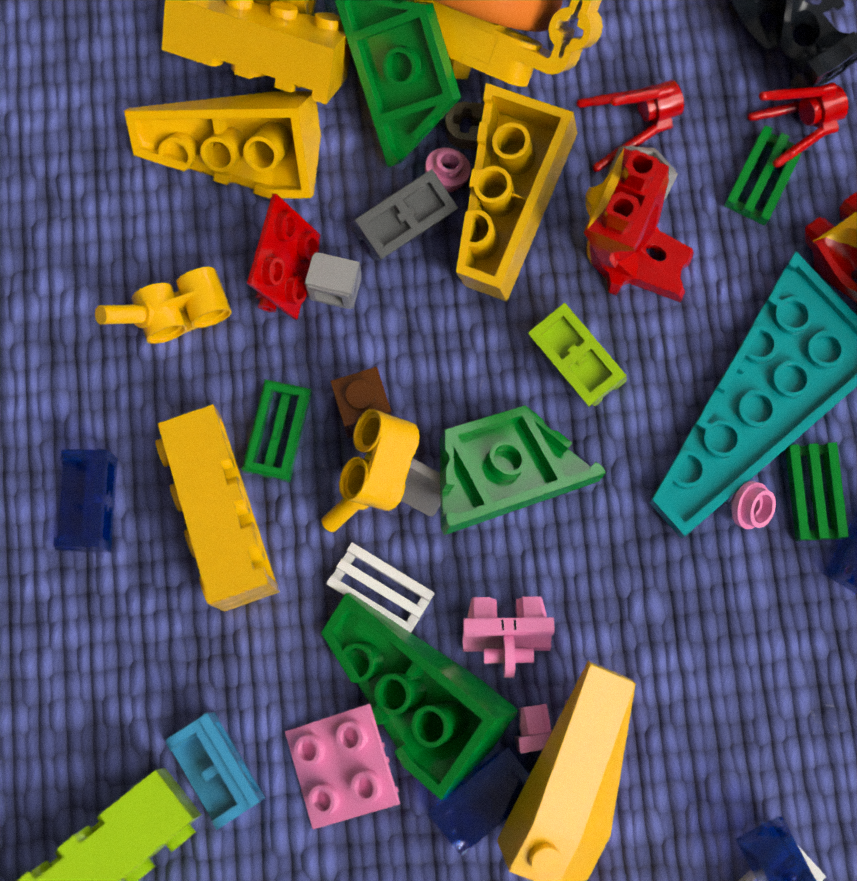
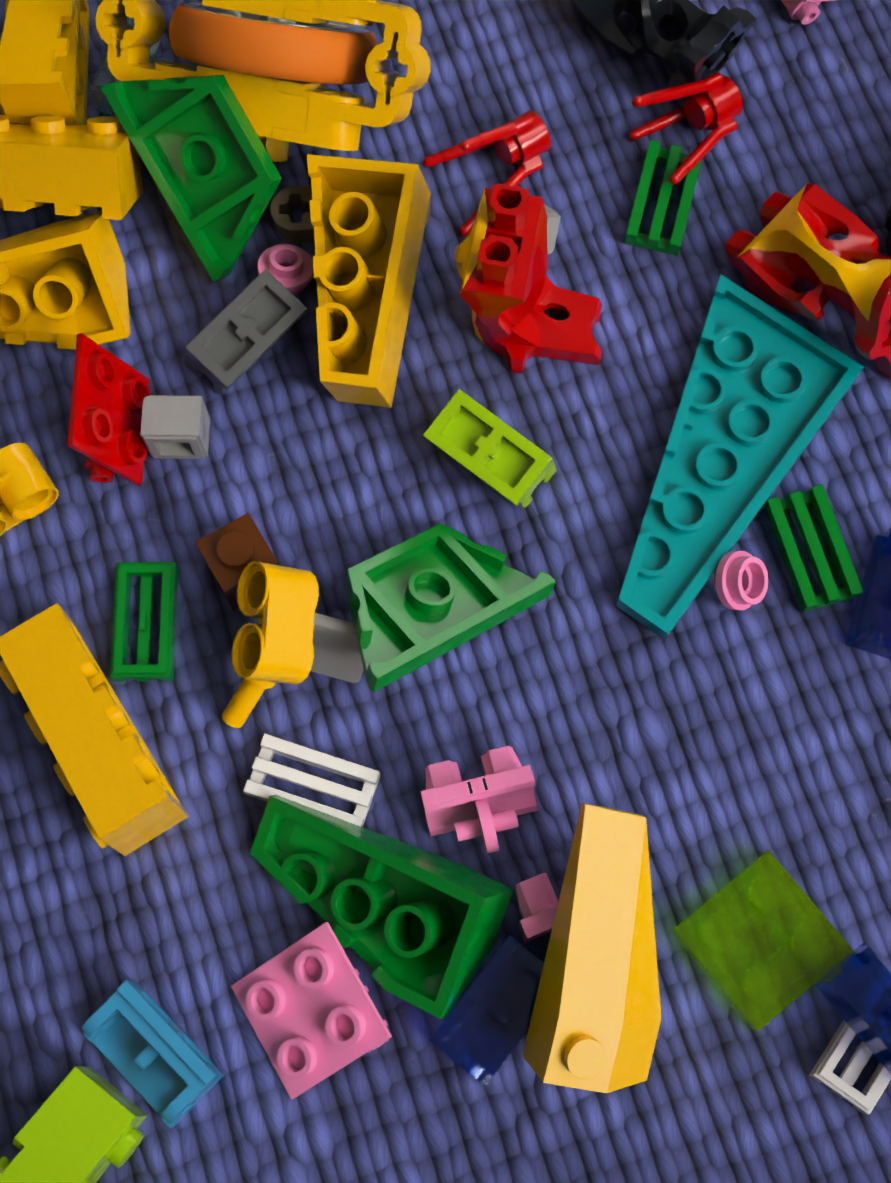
camera: 10 degrees left, 5 degrees down
(702, 794) = (761, 941): none -> clear neon green plate

